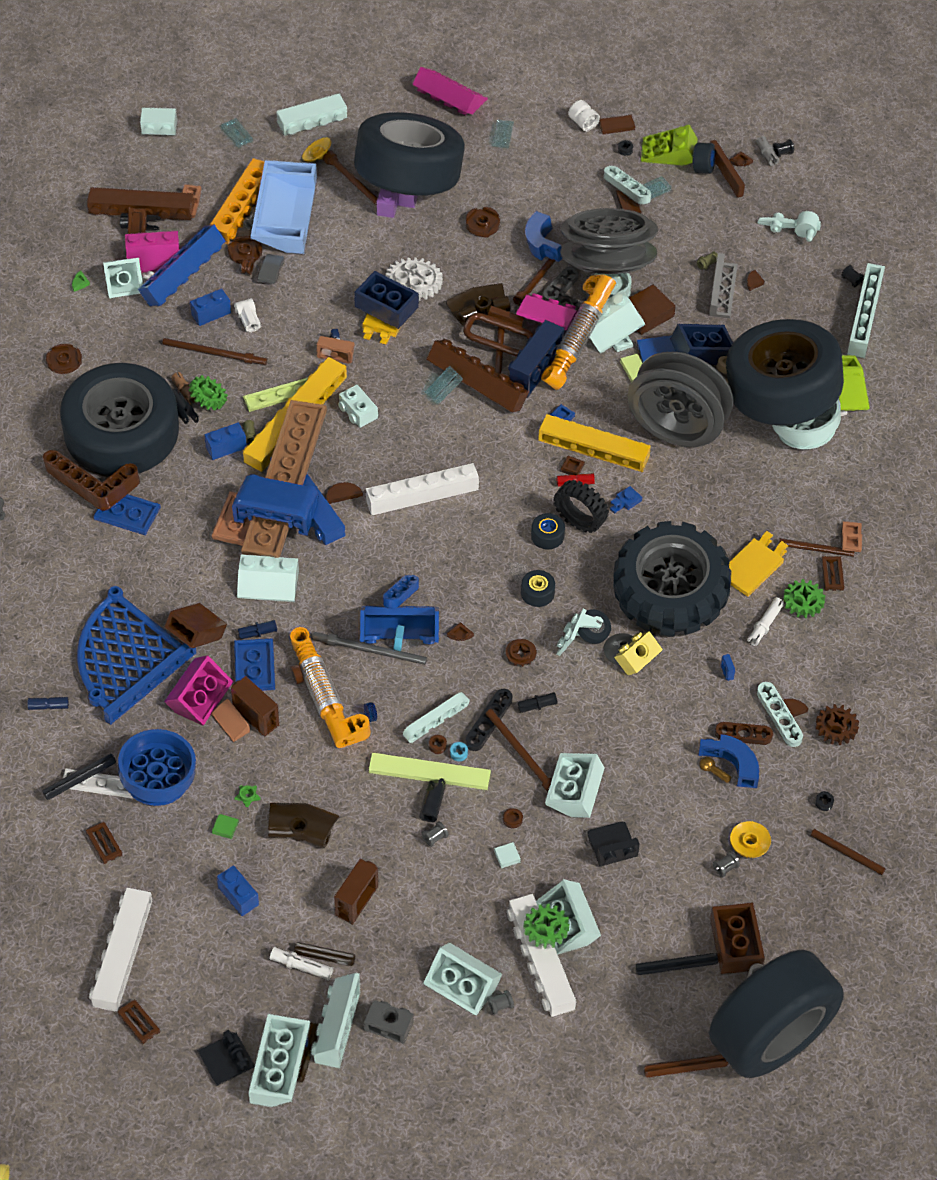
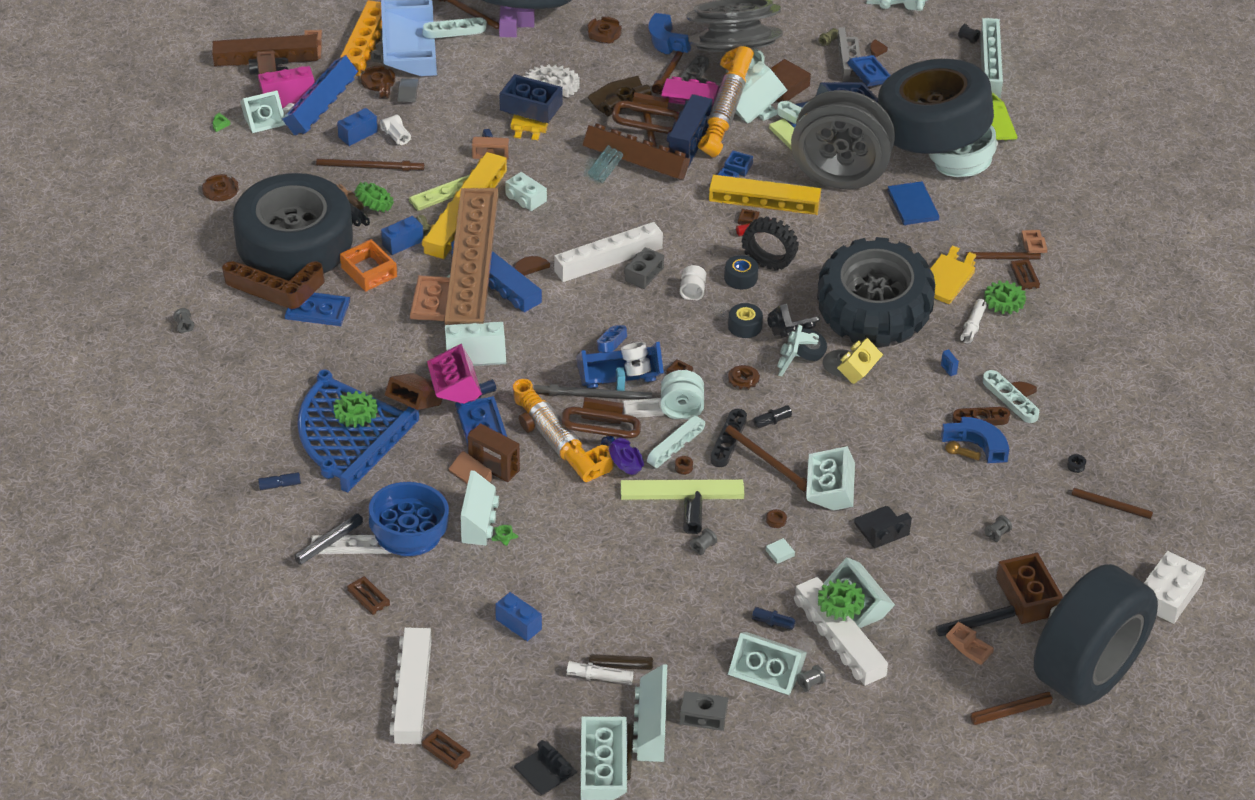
camera: 10 degrees left, 10 degrees down
(134, 637) = (355, 409): none -> bright green gear
(190, 484) = (374, 277): none -> orange window
(199, 690) = (431, 448): dark pink slope -> none
(225, 826) = (489, 564): bright green tile -> none
(226, 767) = (478, 510): none -> light aqua slope
(236, 614) = (454, 376): none -> dark pink slope
(276, 501) = (469, 272): blue windscreen -> none
(314, 822) = (566, 550): dark brown panel -> none
(333, 202) = (437, 30): none -> light aqua beam
(356, 891) = (640, 598): reddish brown window -> none
(369, 672) = (601, 411): none -> reddish brown bar
(382, 728) = (625, 456): none -> dark purple tile
(414, 673) = (643, 407): none -> white tile
(417, 620) = (635, 352): none -> white wheel
(452, 668) = (682, 394): none -> light aqua wheel
(453, 512) = (644, 267): none -> dark grey brick
(454, 755) = (709, 464): medium azure bush -> none
(481, 930) = (773, 618): none -> dark blue axle
(496, 537) = (693, 282): none -> white wheel
(569, 596) = (781, 323): none -> black bracket
(578, 401) = (739, 163): none -> blue piece
(627, 498) = (809, 237): blue plate -> none
(645, 349) = (788, 111): none -> light aqua beam
(662, 988) = (966, 642): none -> nougat slope
(737, 309) = (869, 70): none -> blue tile
(742, 472) = (913, 203): none -> blue tile
(752, 832) = (1015, 503): yellow dish -> none
(837, 724) = (1069, 397): reddish brown gear -> none
(877, 958) = (1174, 584): none -> white brick

